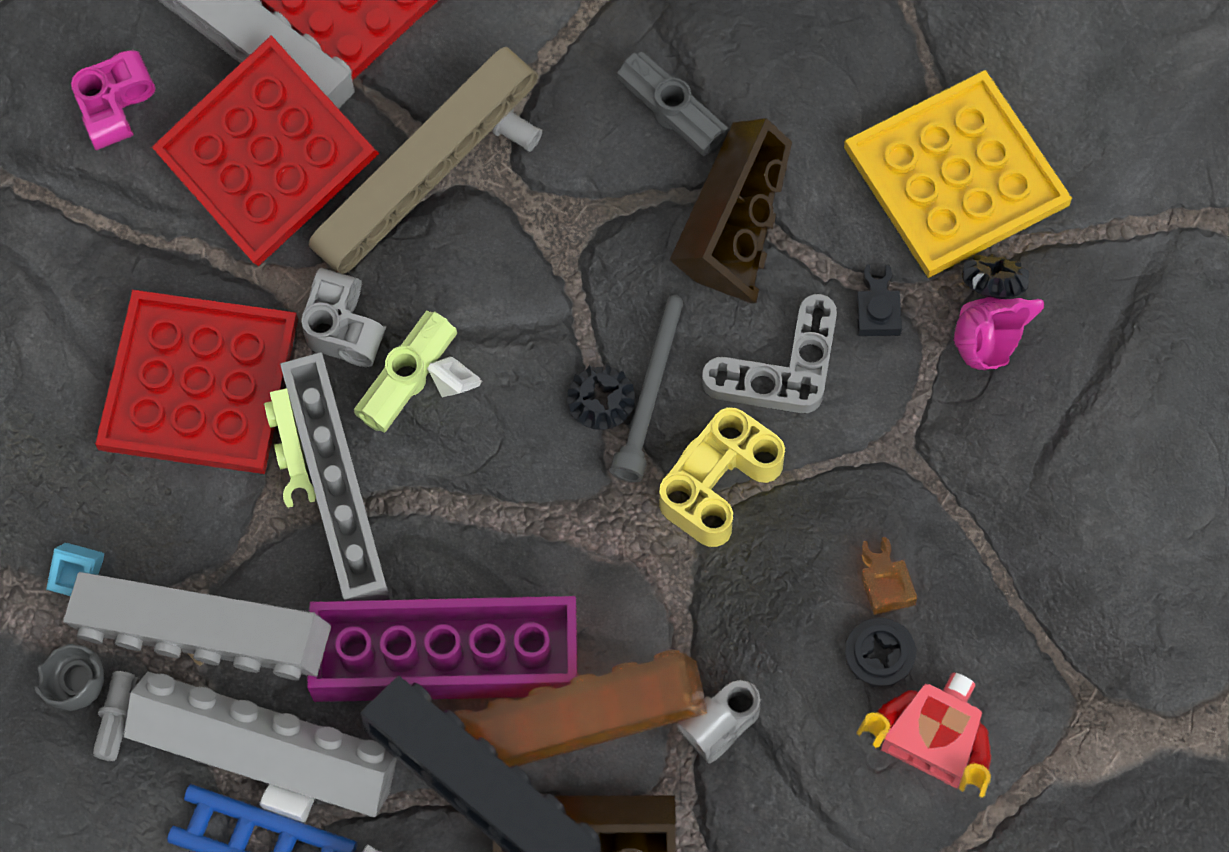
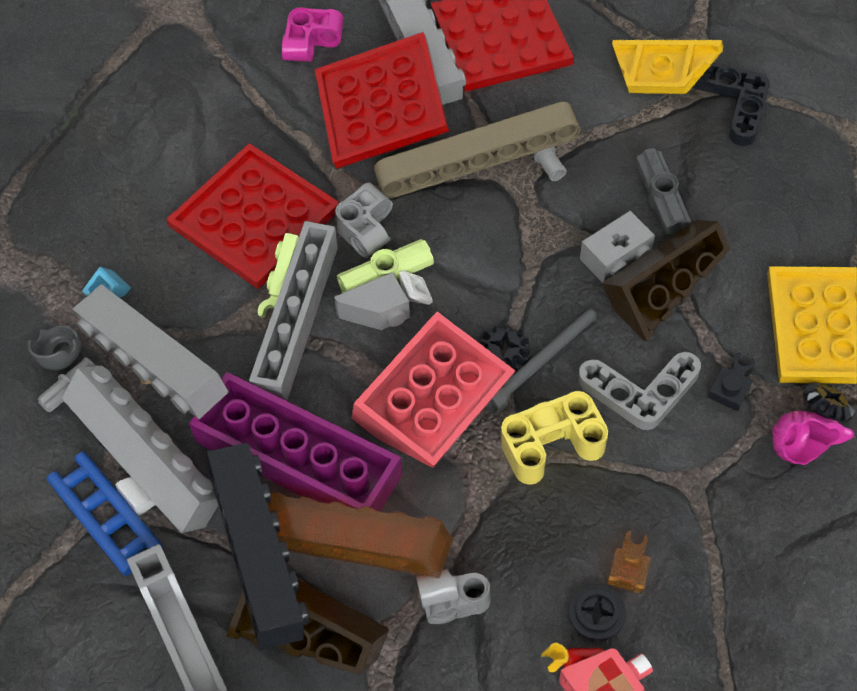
camera: 30 degrees right, 10 degrees down
(421, 420) = (374, 304): none -> light grey slope
(558, 497) = (431, 391): none -> coral slope
(661, 182) = (616, 246): none -> light grey brick

